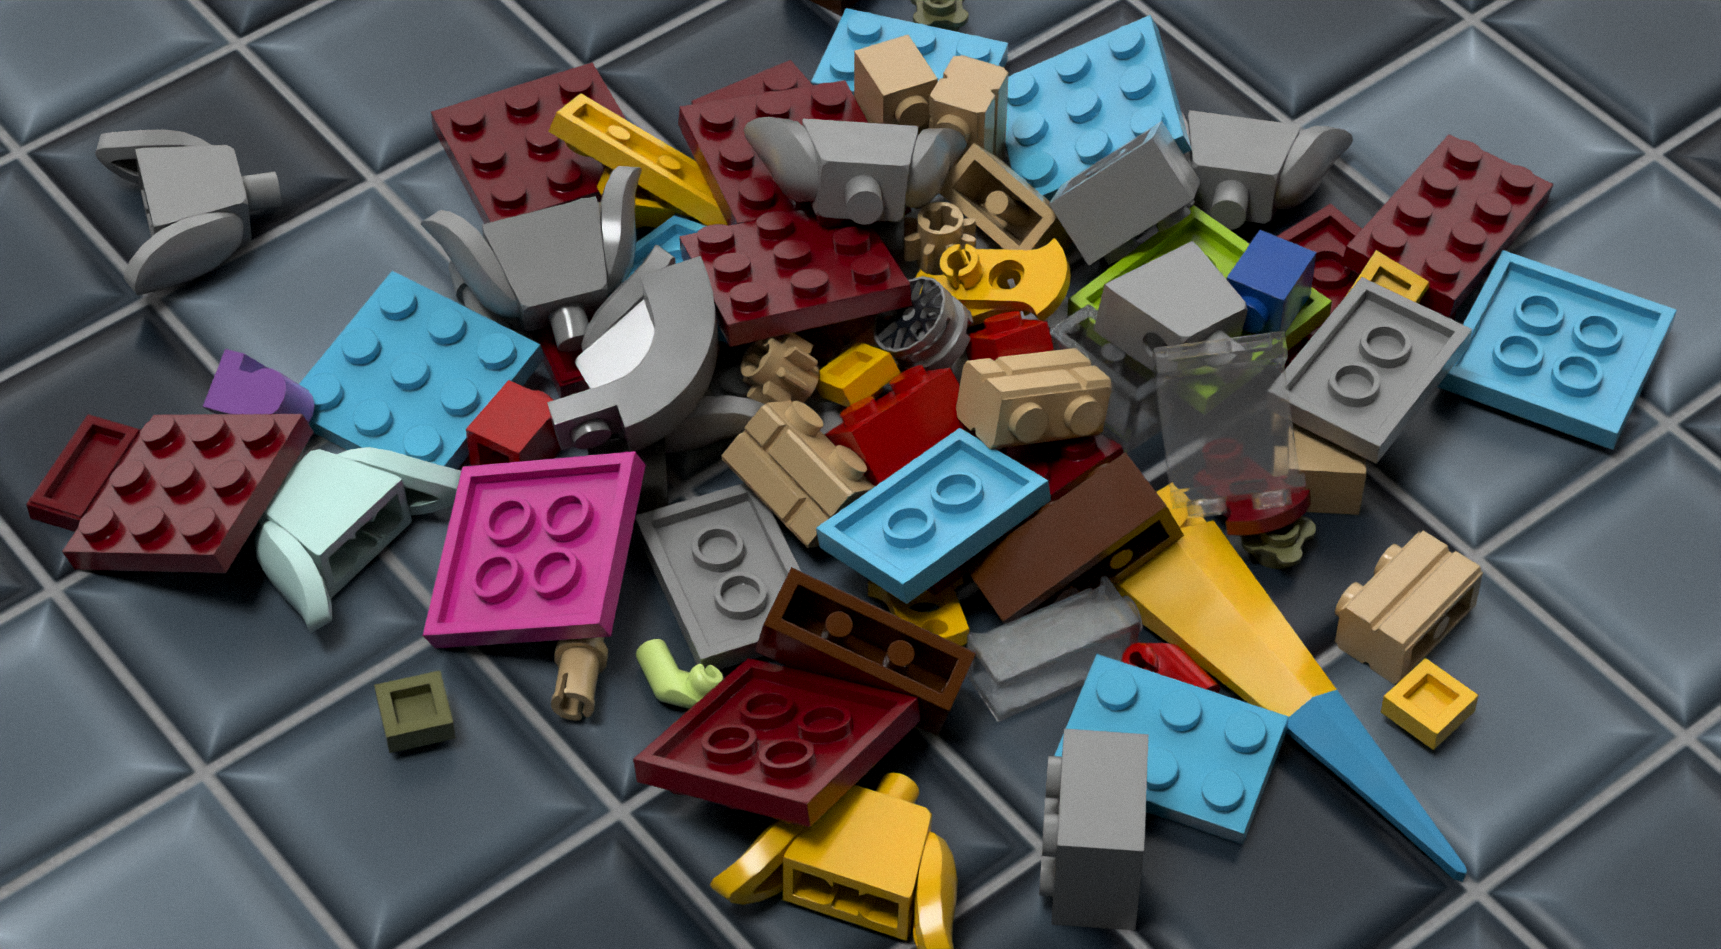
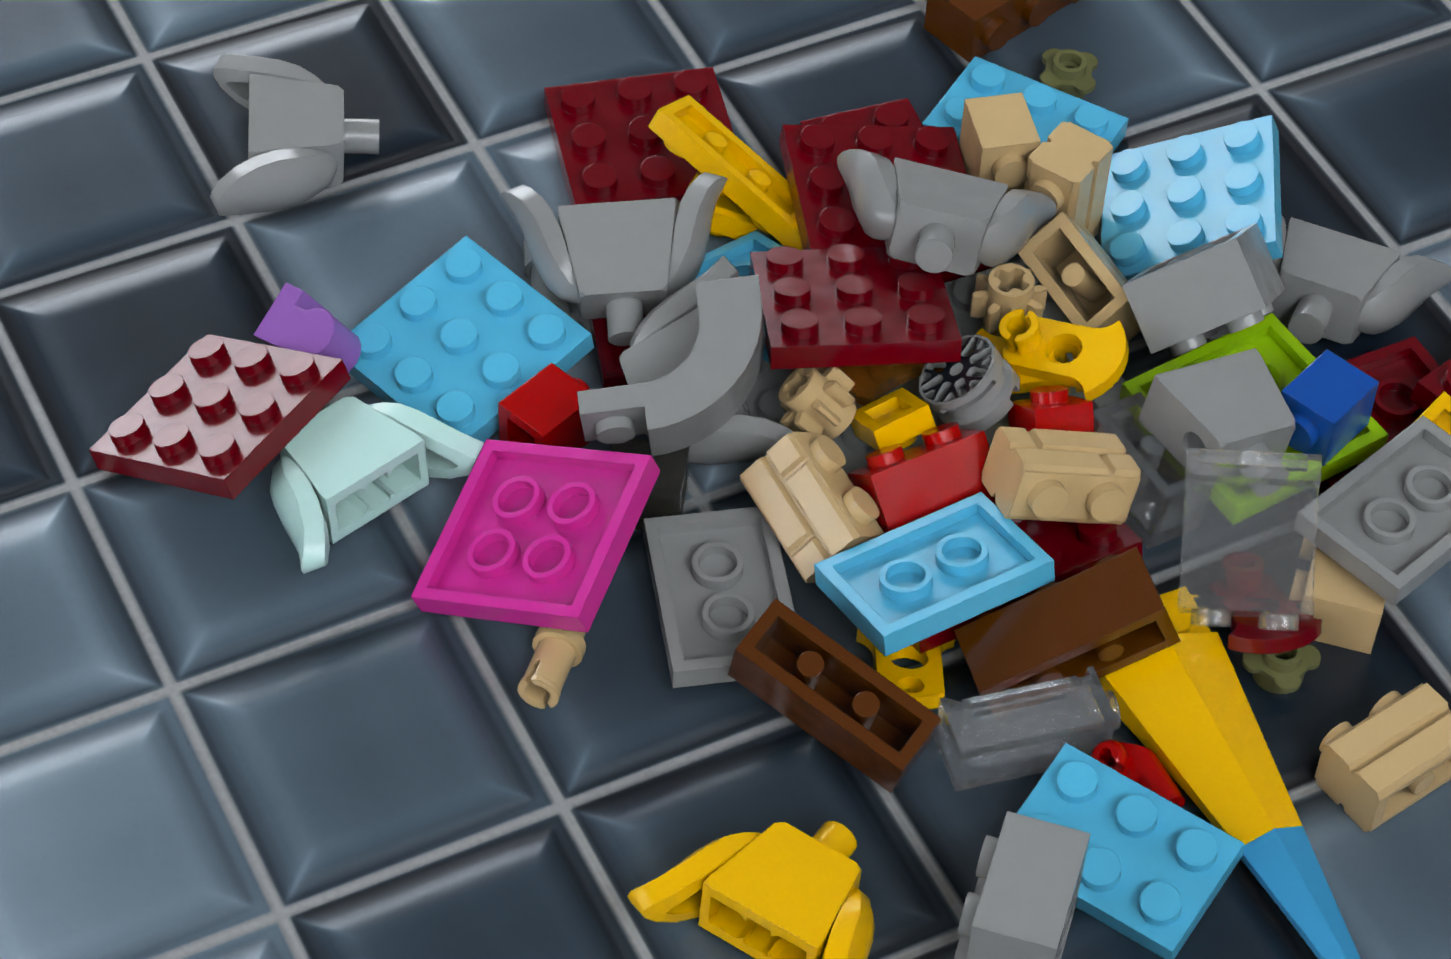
camera: 10 degrees right, 0 degrees up
(81, 472) = (126, 376): dark red tile -> none
(414, 711) = (384, 669): olive plate -> none
(670, 682) = (644, 694): yellowish green arm -> none
(777, 741) = (726, 768): dark red plate -> none
(1429, 703) = (1393, 858): yellow plate -> none

